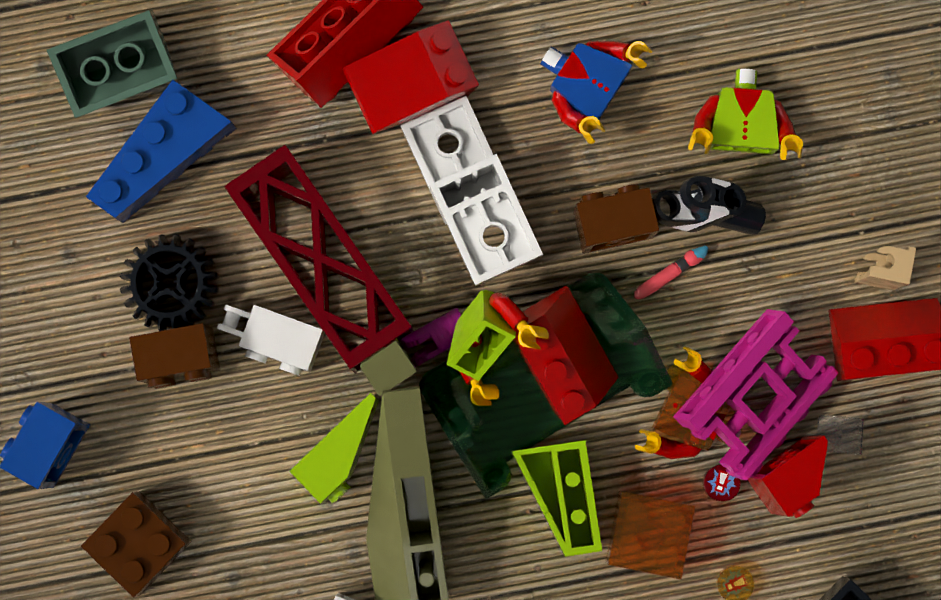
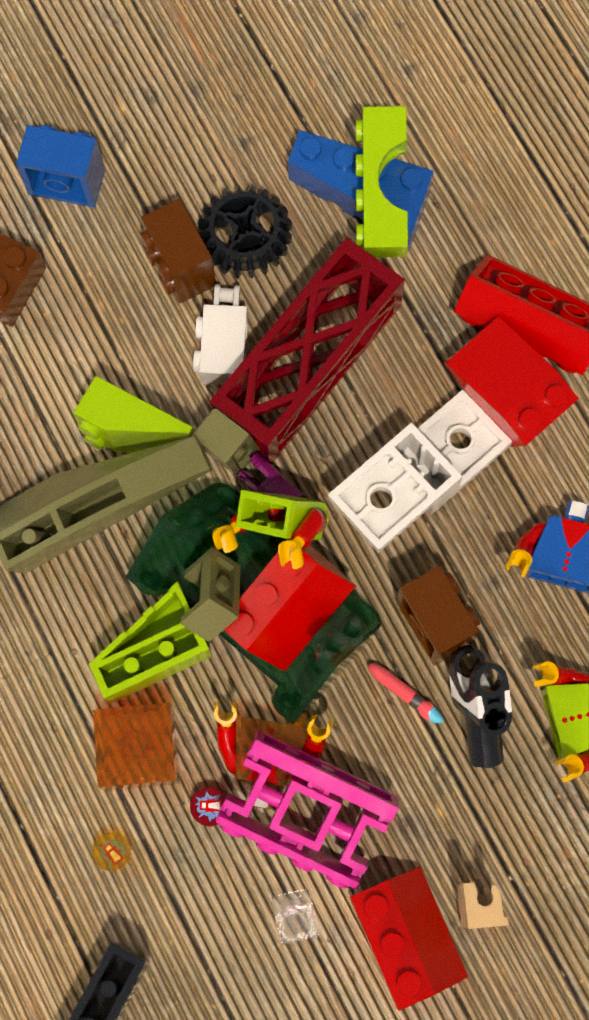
camera: 75 degrees right, 10 degrees down
(112, 63) = (439, 121): sand green slope -> none
(128, 117) = (383, 140): none -> lime arch
(537, 414) = (219, 594): none -> olive panel
(792, 477) = (228, 865): red slope -> none

